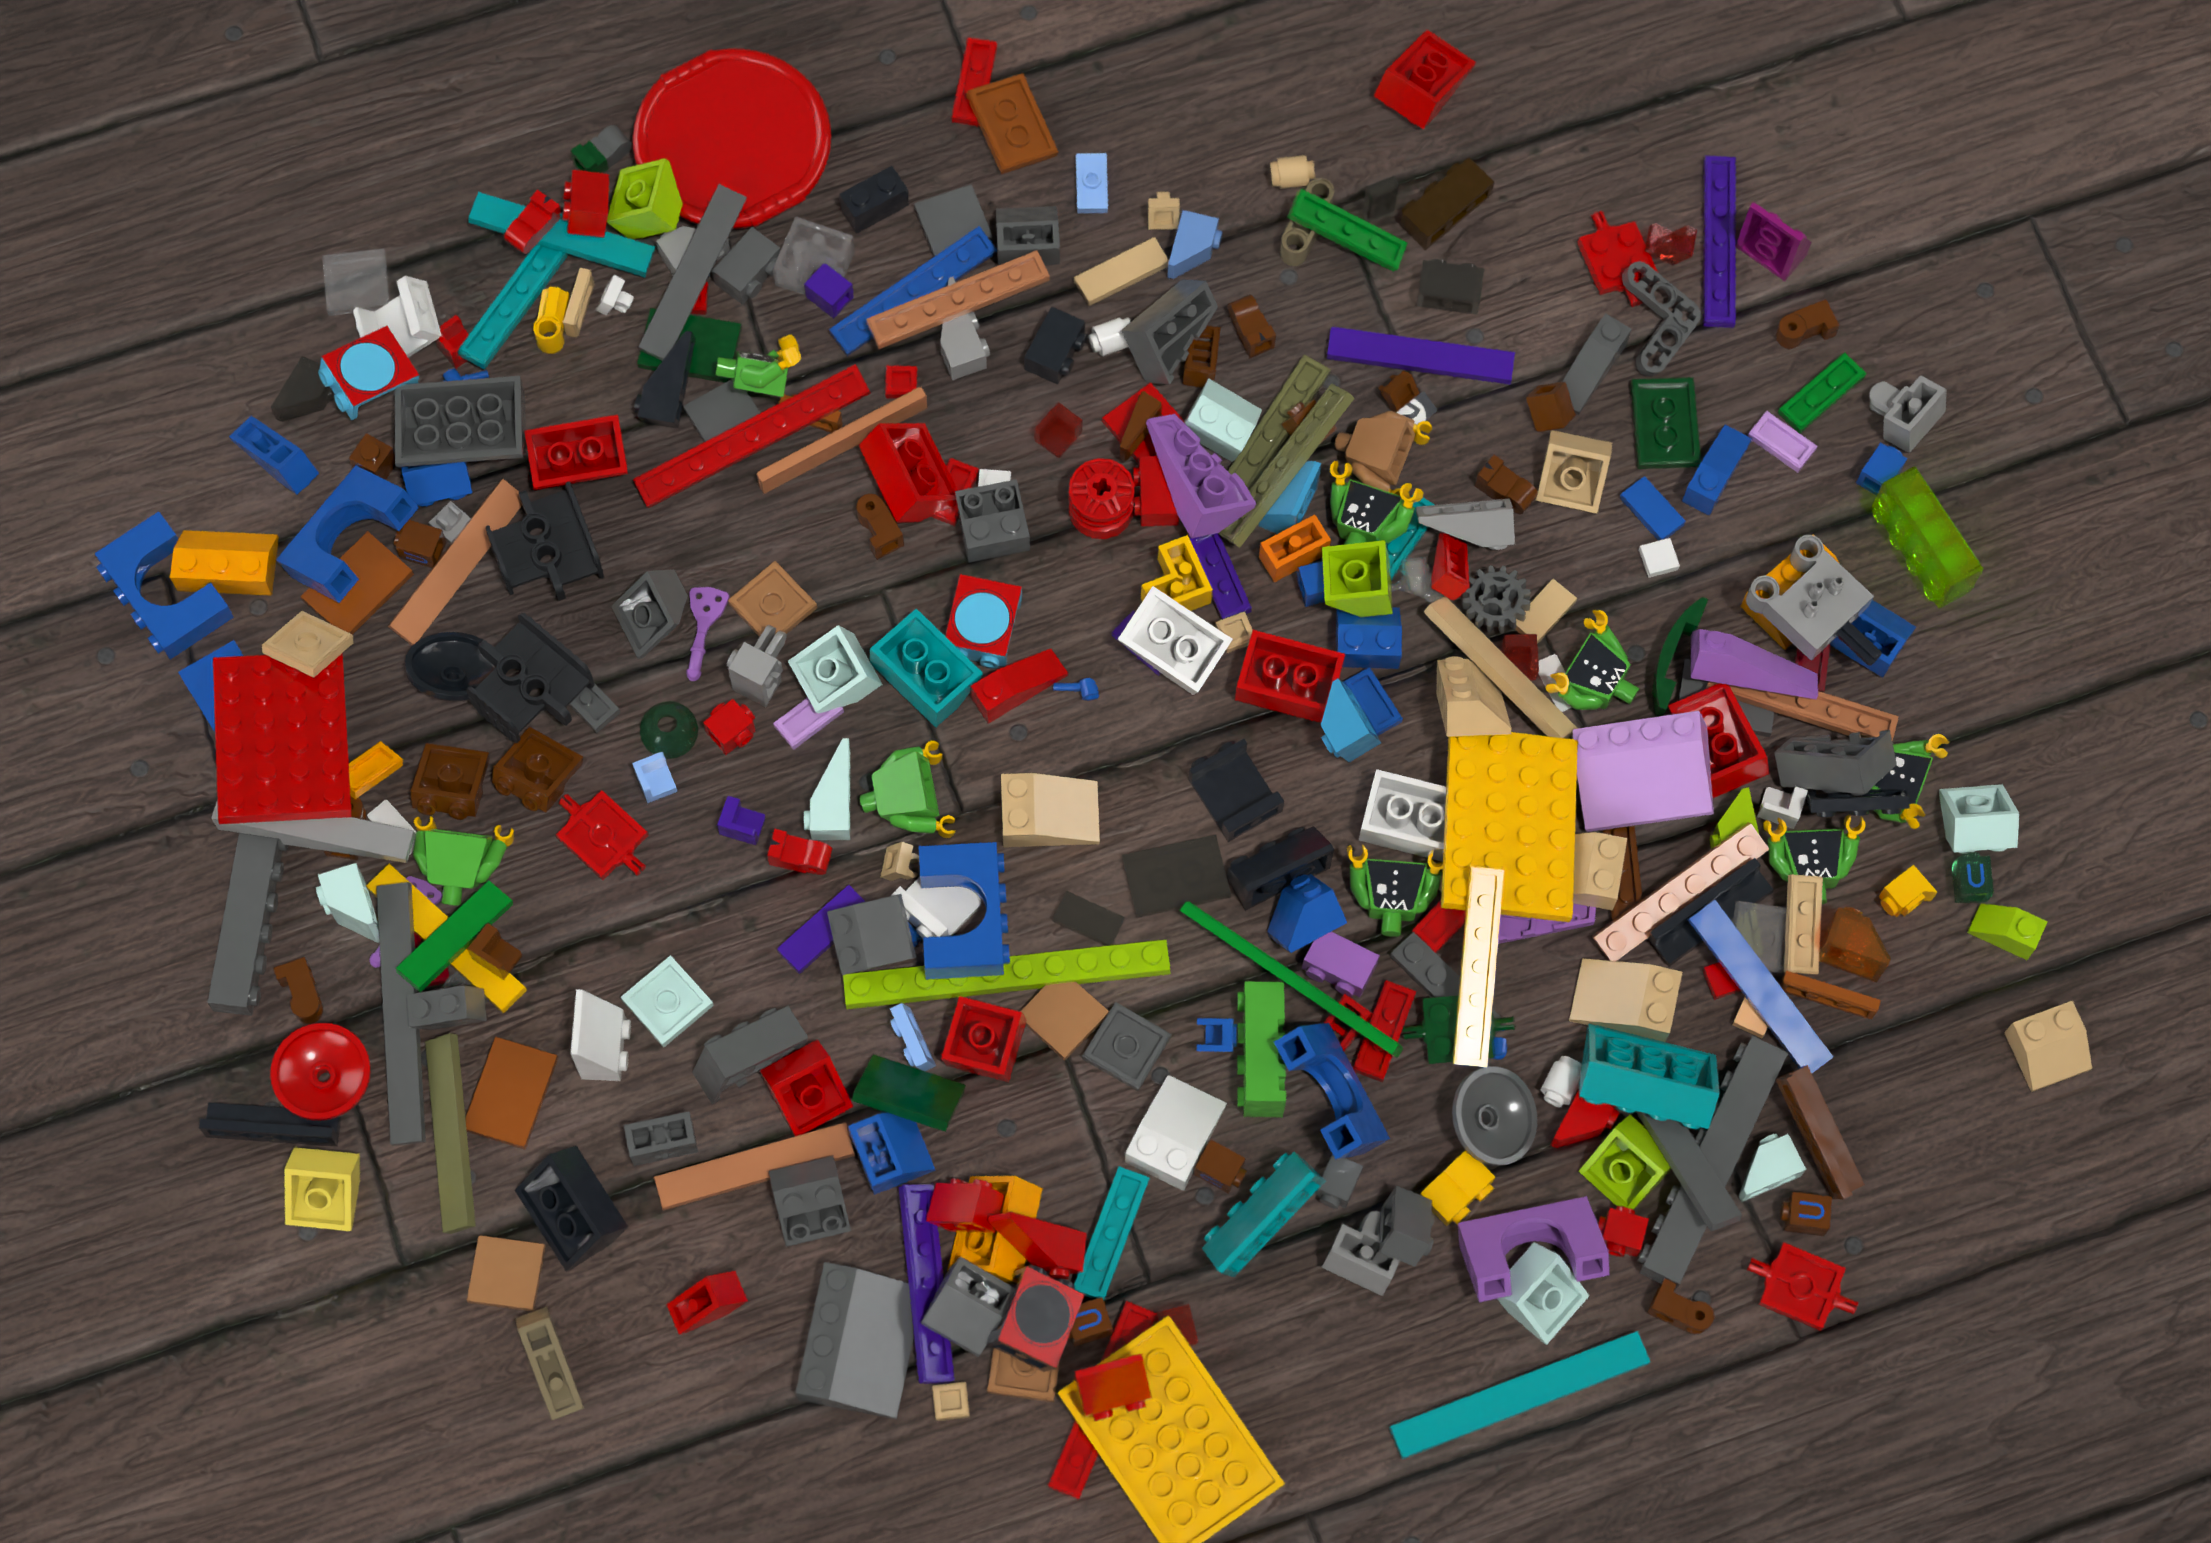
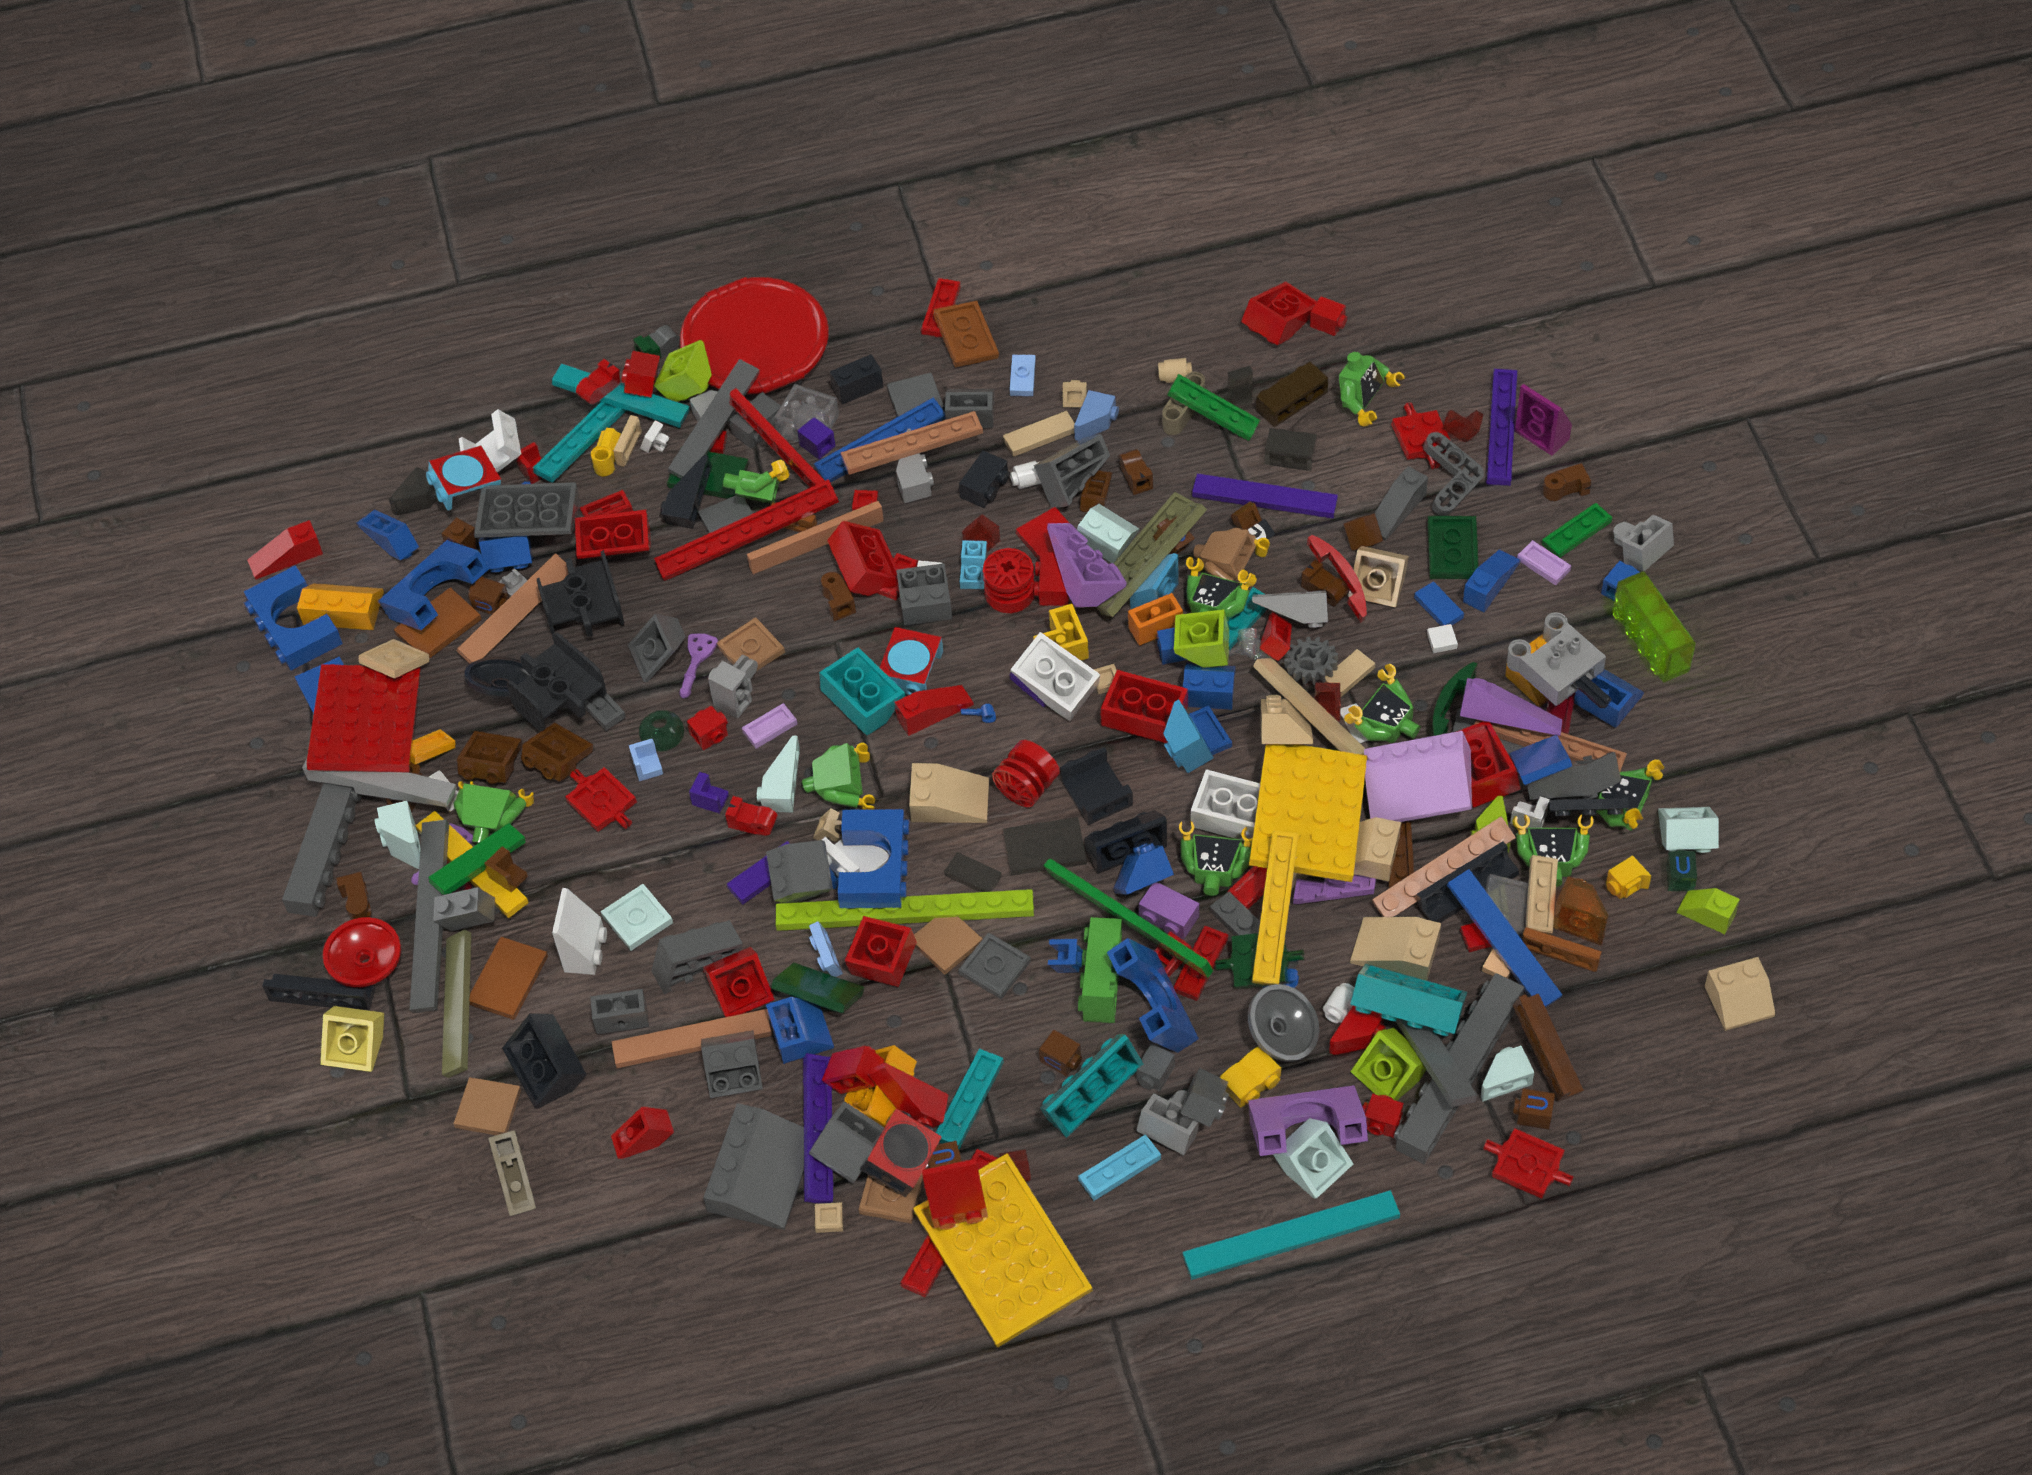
camera: 10 degrees right, 15 degrees down
(140, 485) = (287, 549): none -> red slope
(355, 281) = (464, 421): clear tile -> none
(555, 394) = (606, 508): none -> red tile
(780, 304) = (774, 439): none -> red tile
(834, 671) = (792, 691): light aqua slope -> none
(1051, 471) = (972, 563): none -> medium azure slope
(1137, 429) = (1039, 535): reddish brown slope -> none
(1147, 781) = (1025, 773): none -> red wheel
(1174, 1132) = (1024, 1027): white slope -> none
(1227, 589) = (1099, 642): dark purple tile -> none
(1304, 1317) = (1119, 1167): none -> medium azure plate
(1487, 83) = (1328, 316): none -> red brick
(1535, 187) = (1360, 383): none -> torso
(1551, 511) = (1322, 551): none -> red slope
(1680, 1311) = (1426, 1176): reddish brown leg -> none
(1796, 740) = (1540, 759): none -> blue tile

